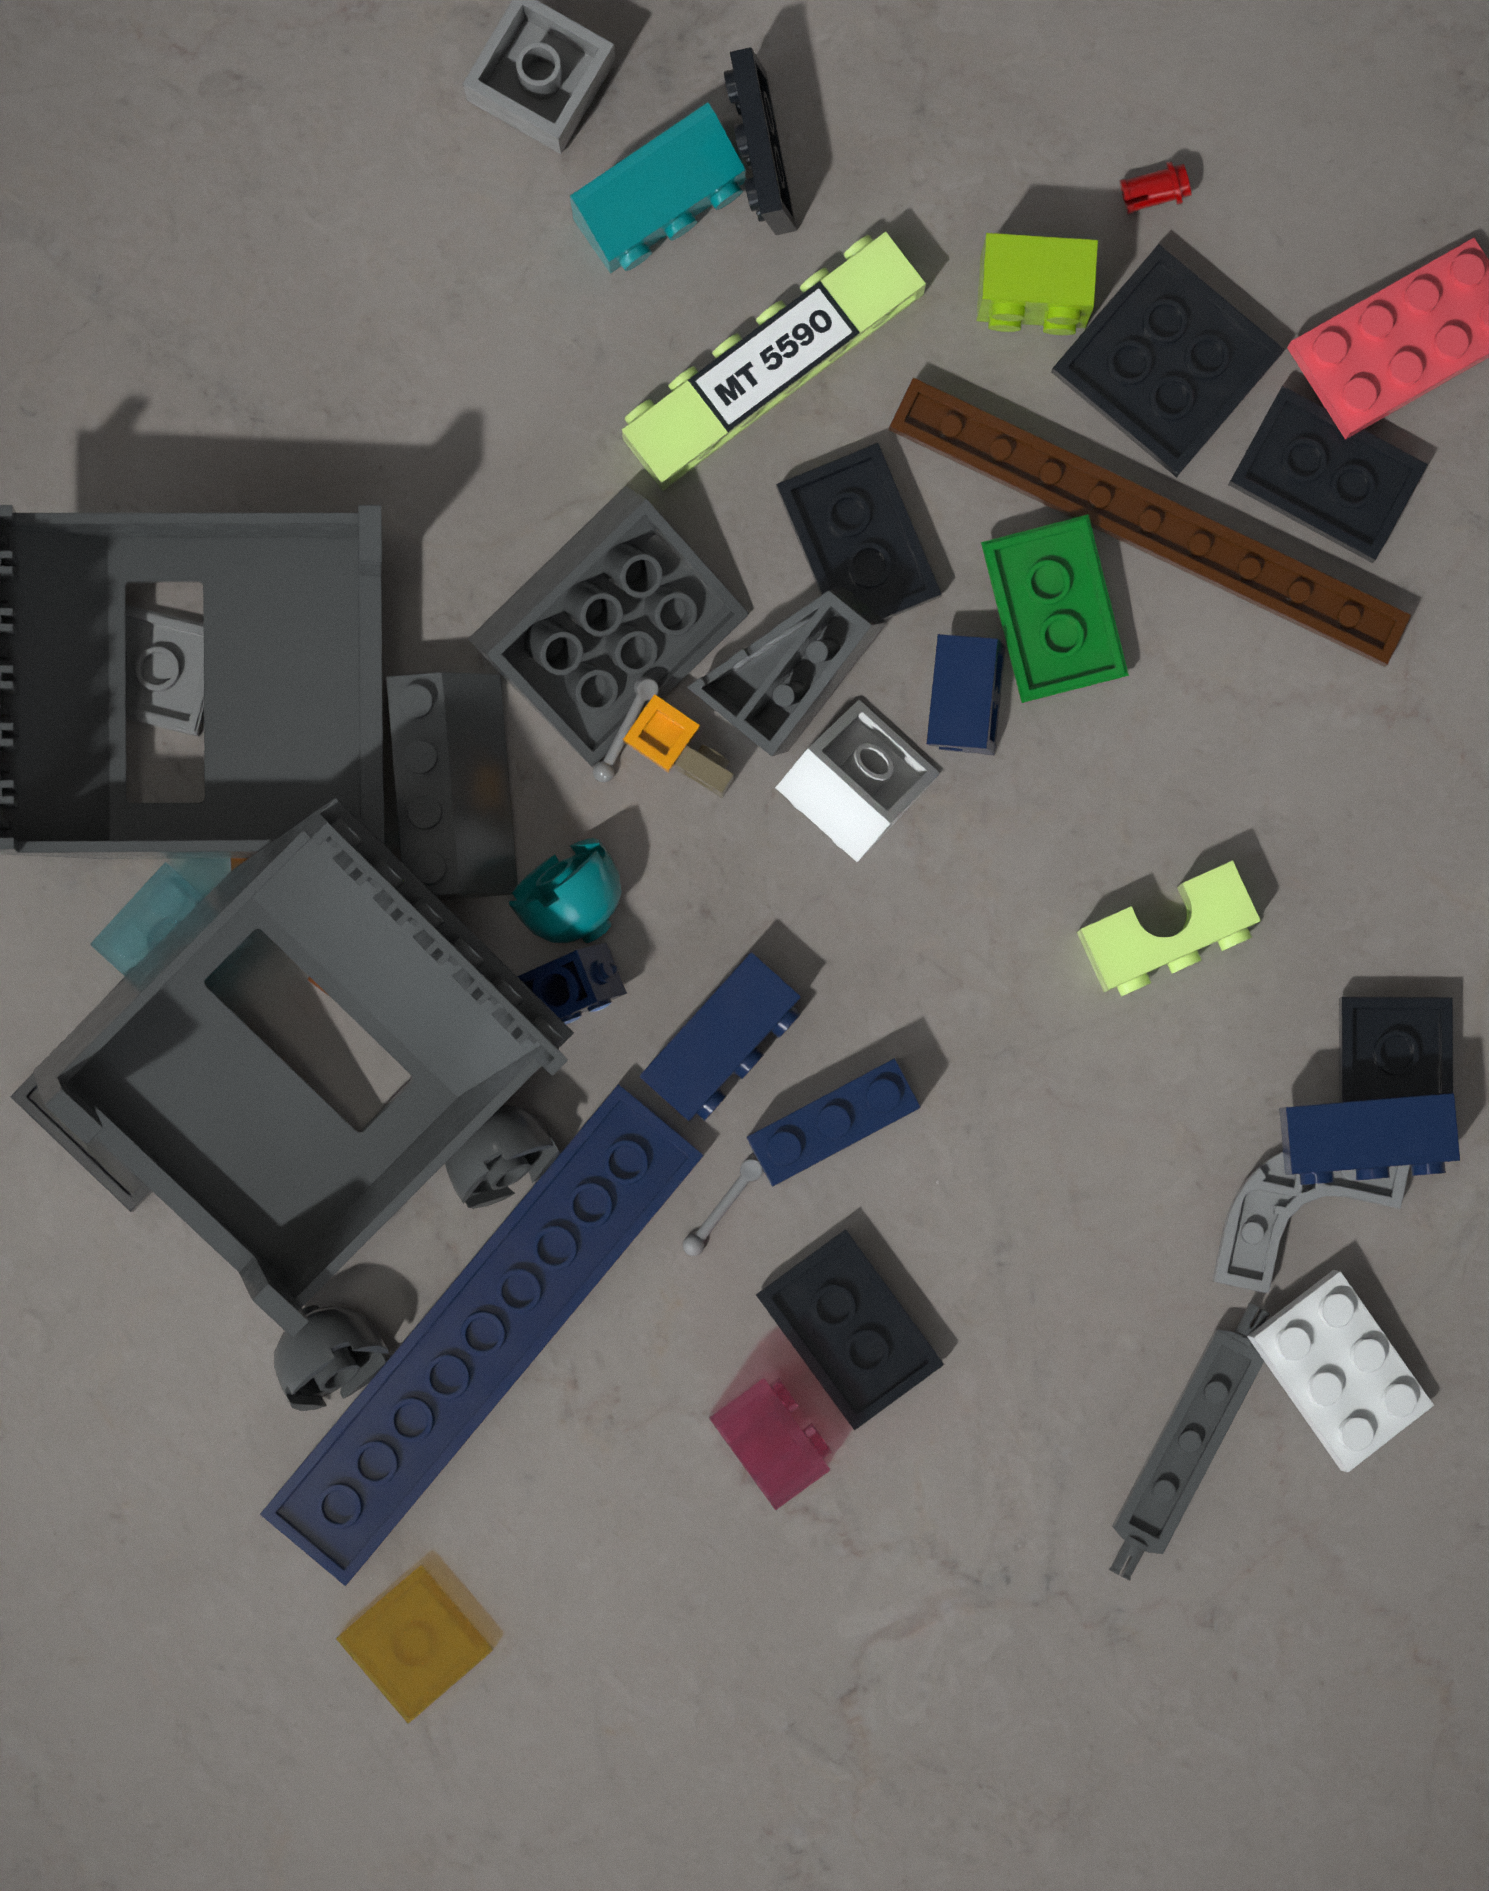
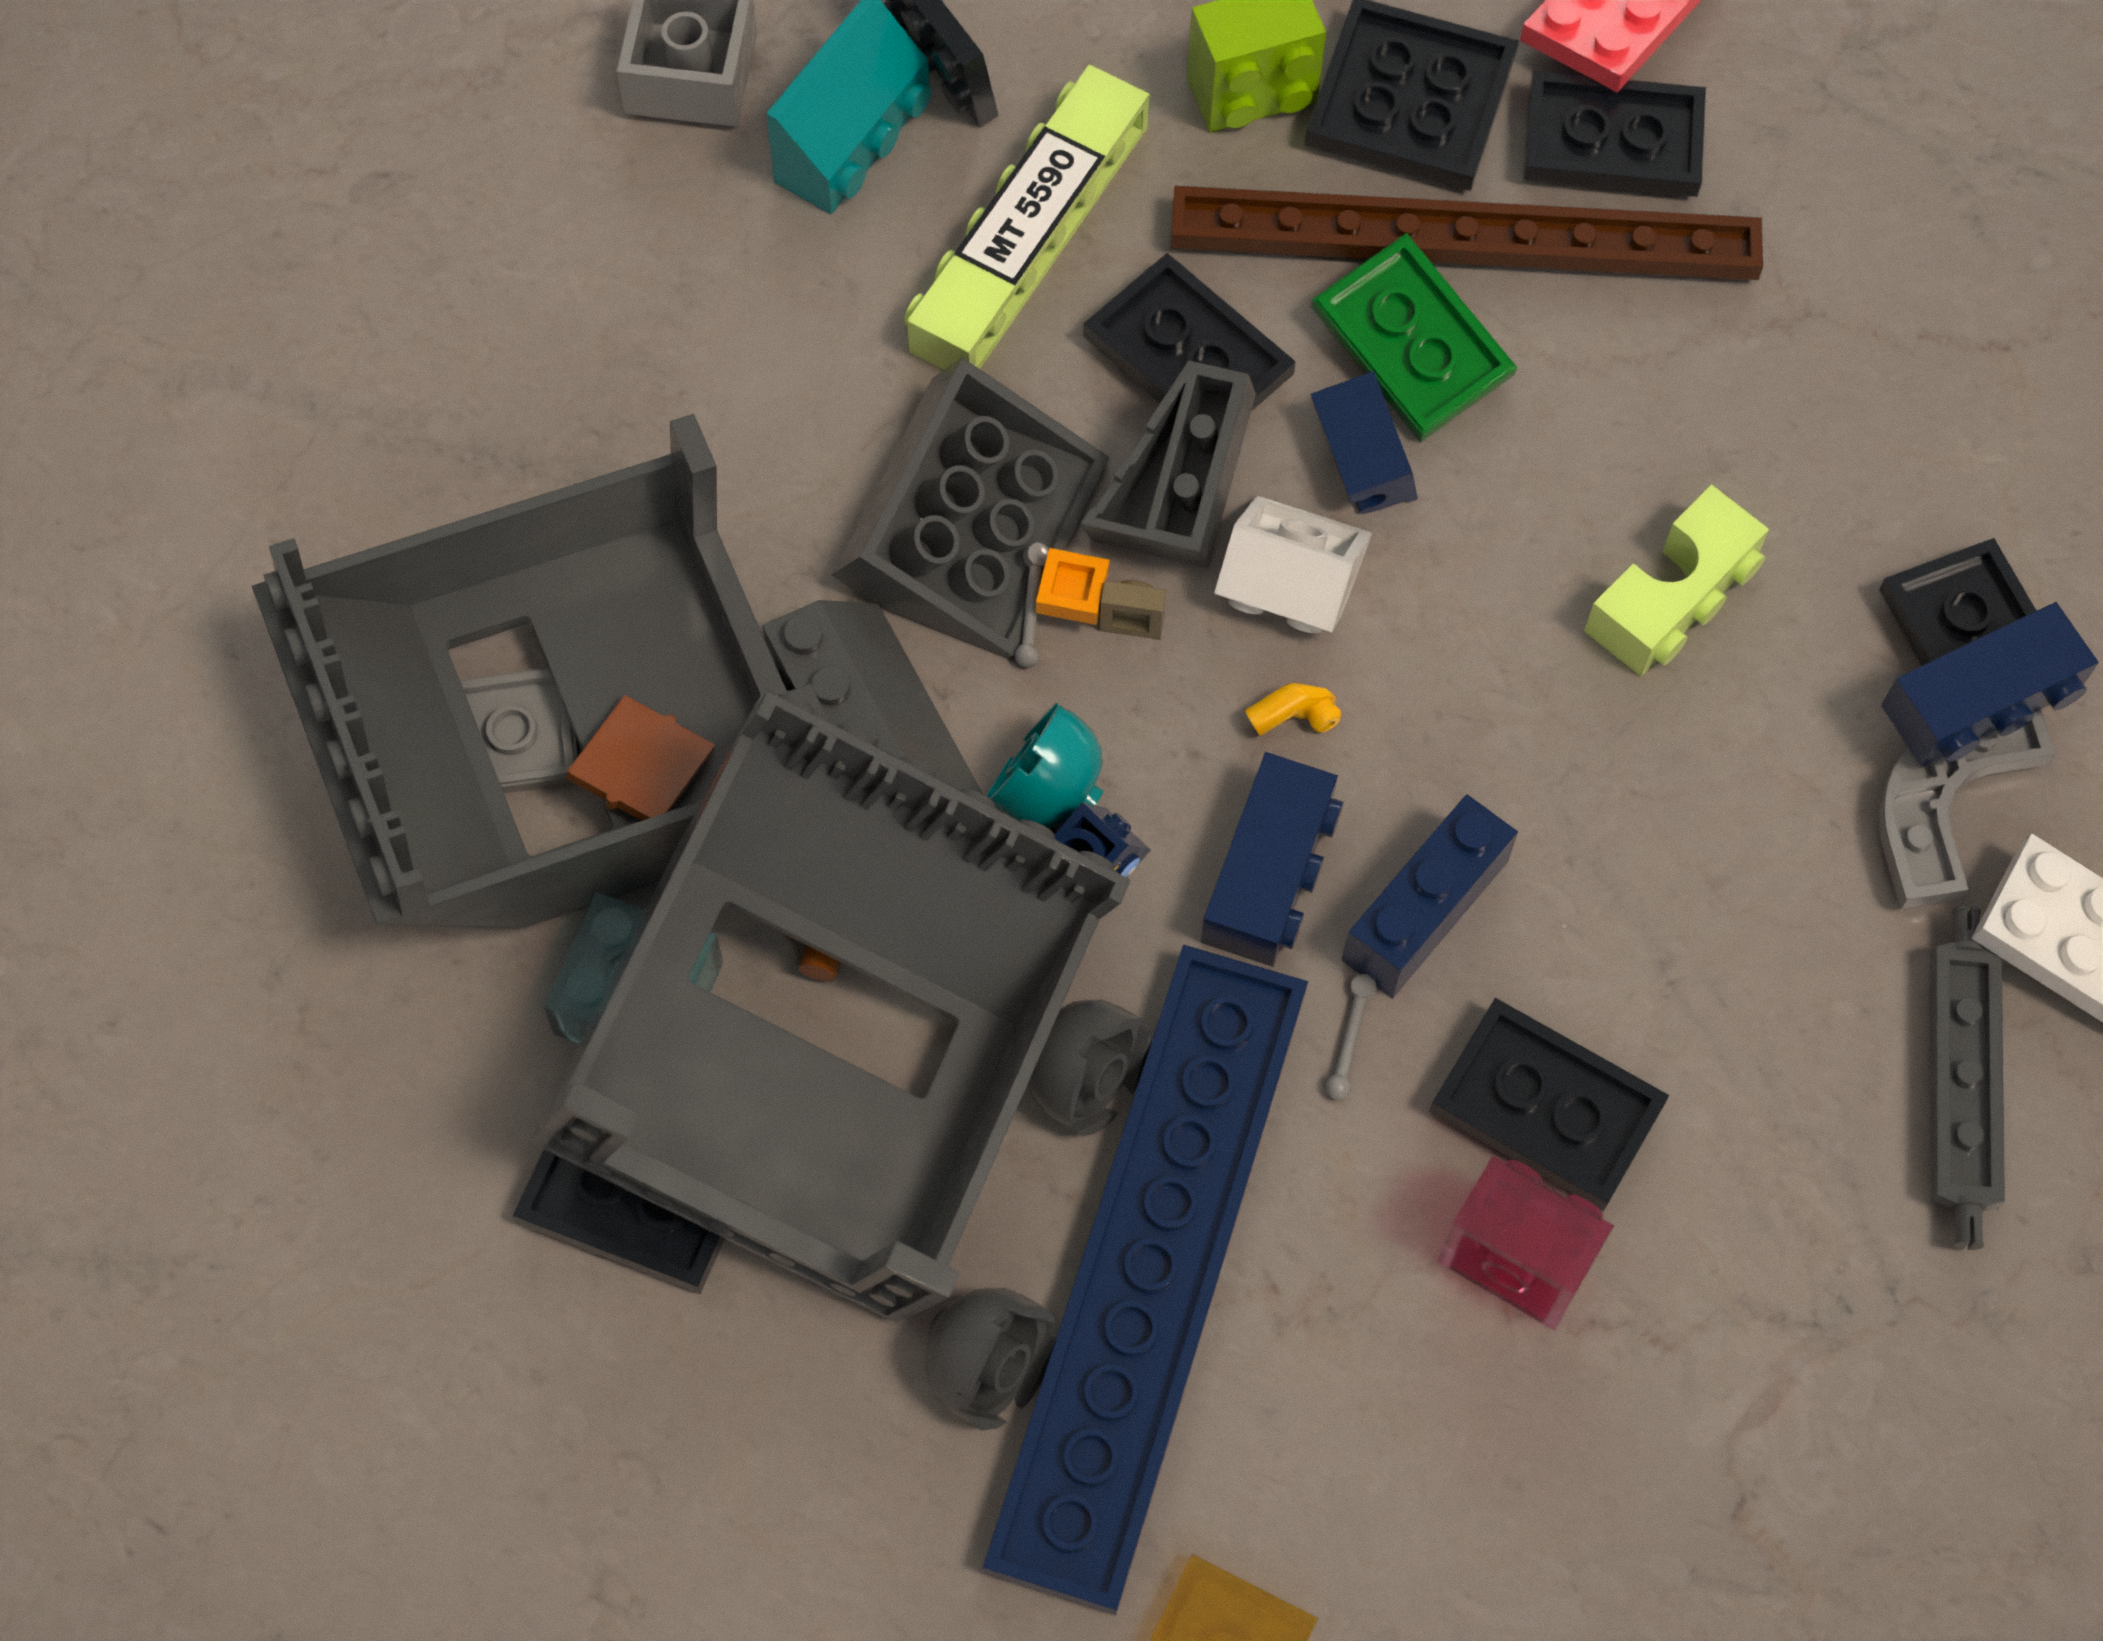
camera: 20 degrees left, 20 degrees down
(244, 757) = (640, 760): none -> dark orange piece
(801, 905) = (1298, 702): none -> yellow arm

